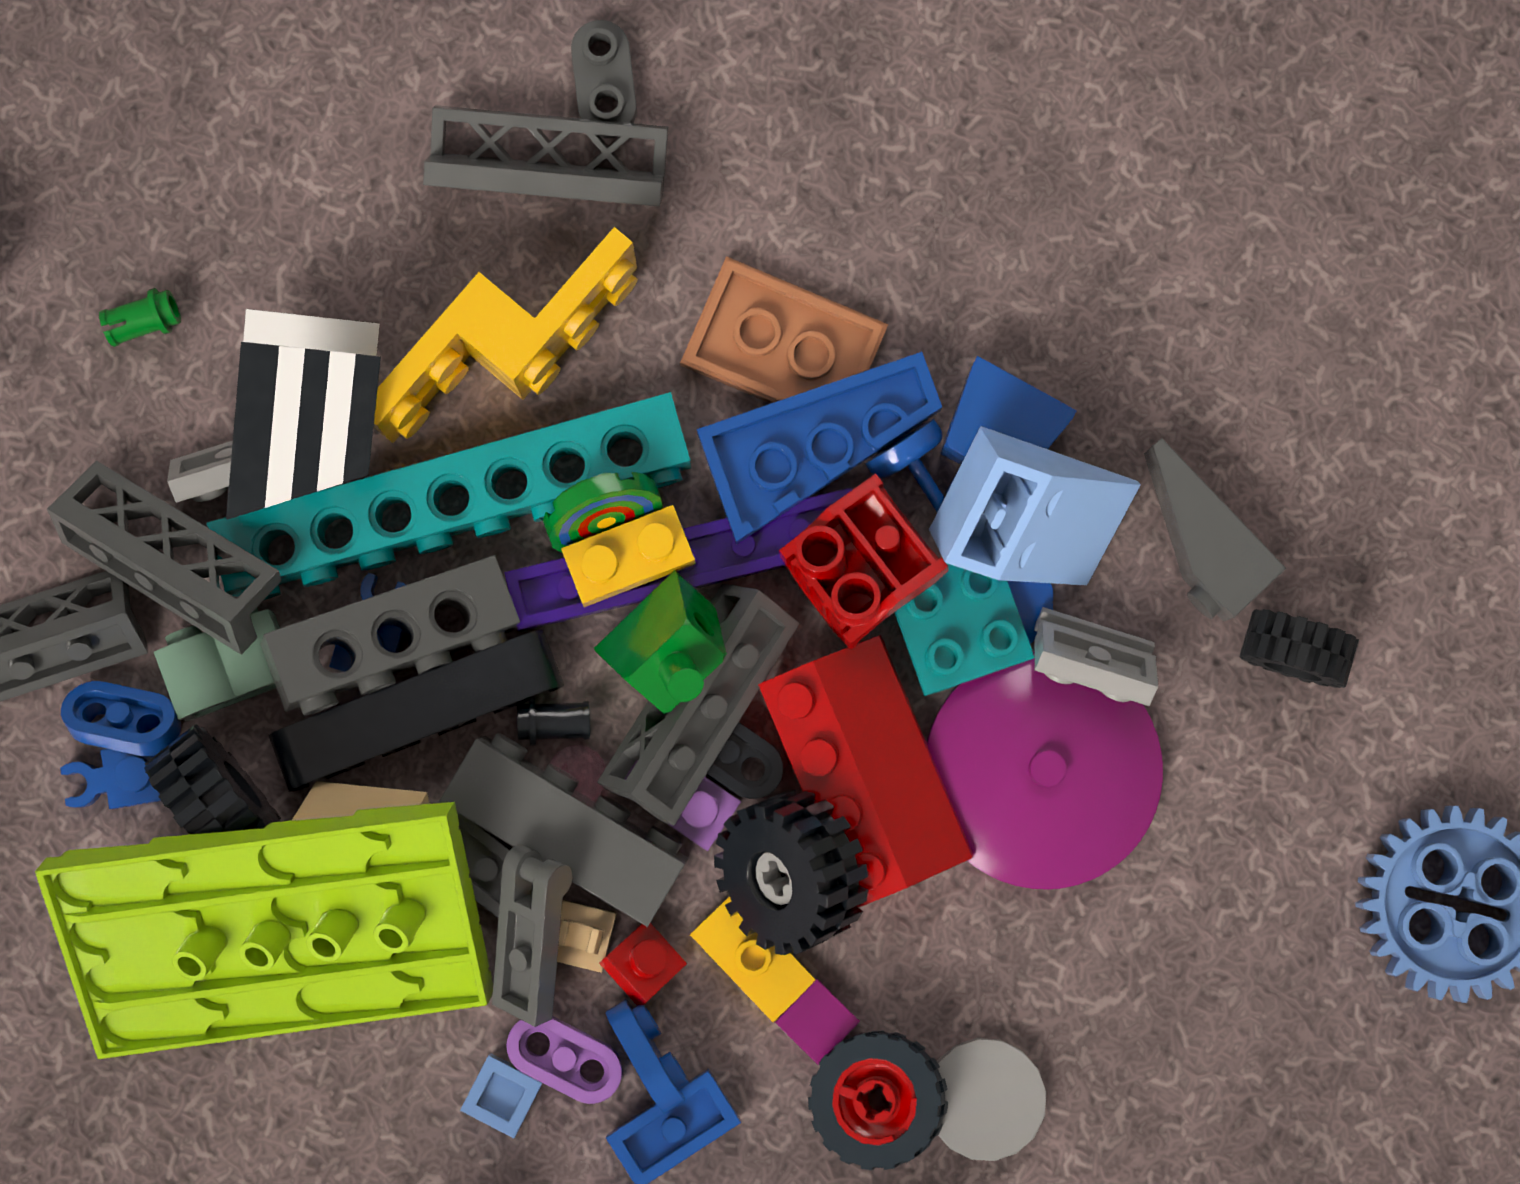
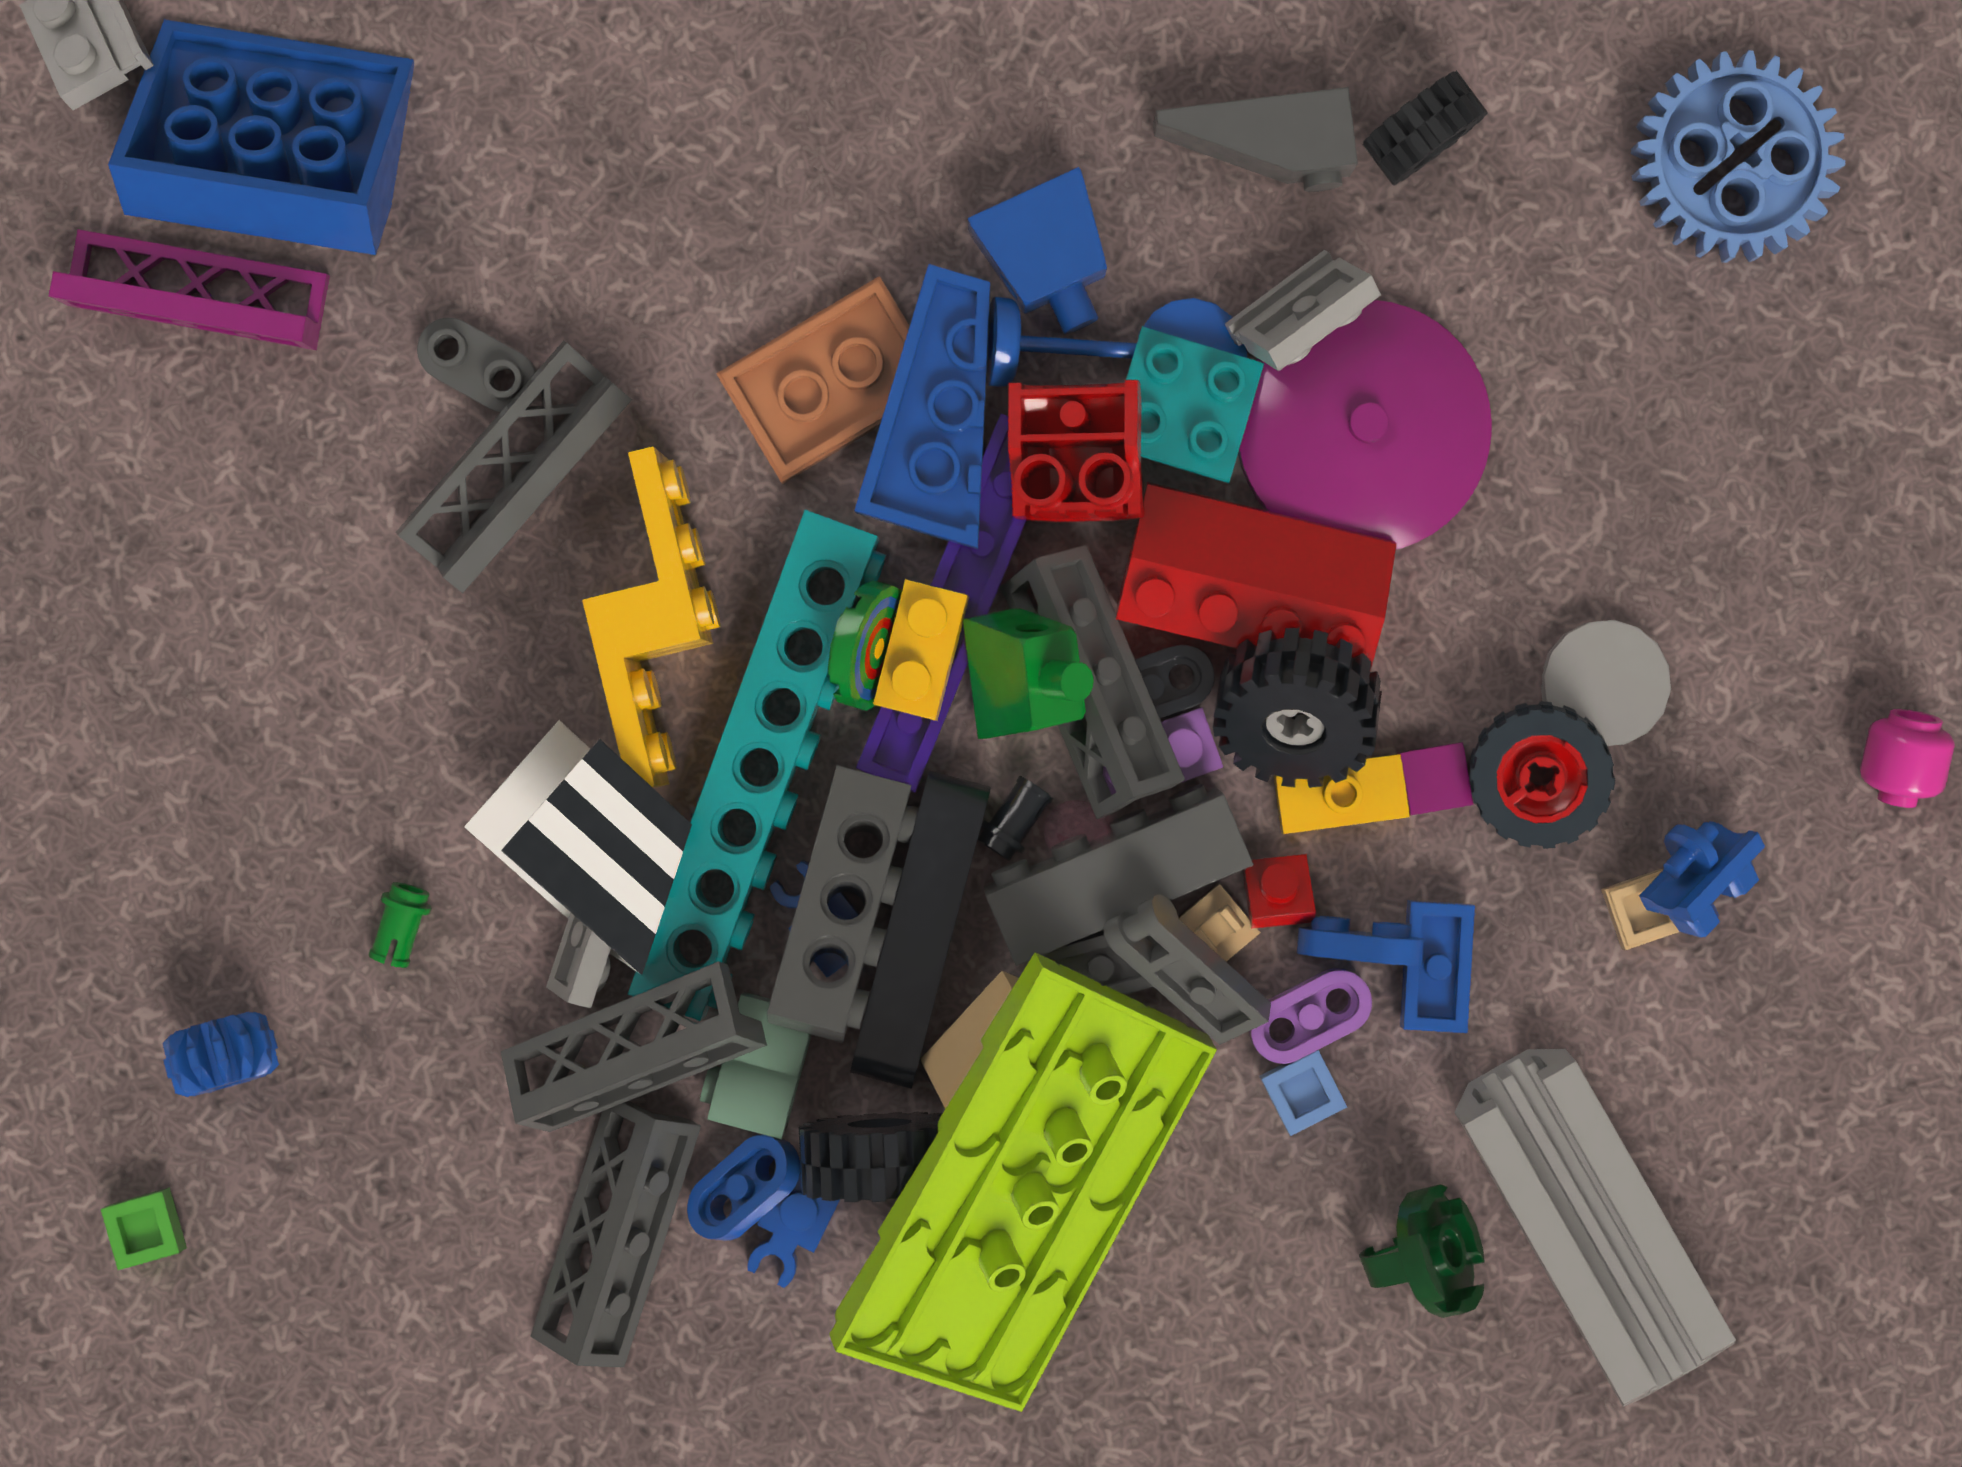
camera: 45 degrees left, 5 degrees up
(1029, 512) = (1138, 275): light blue slope -> none

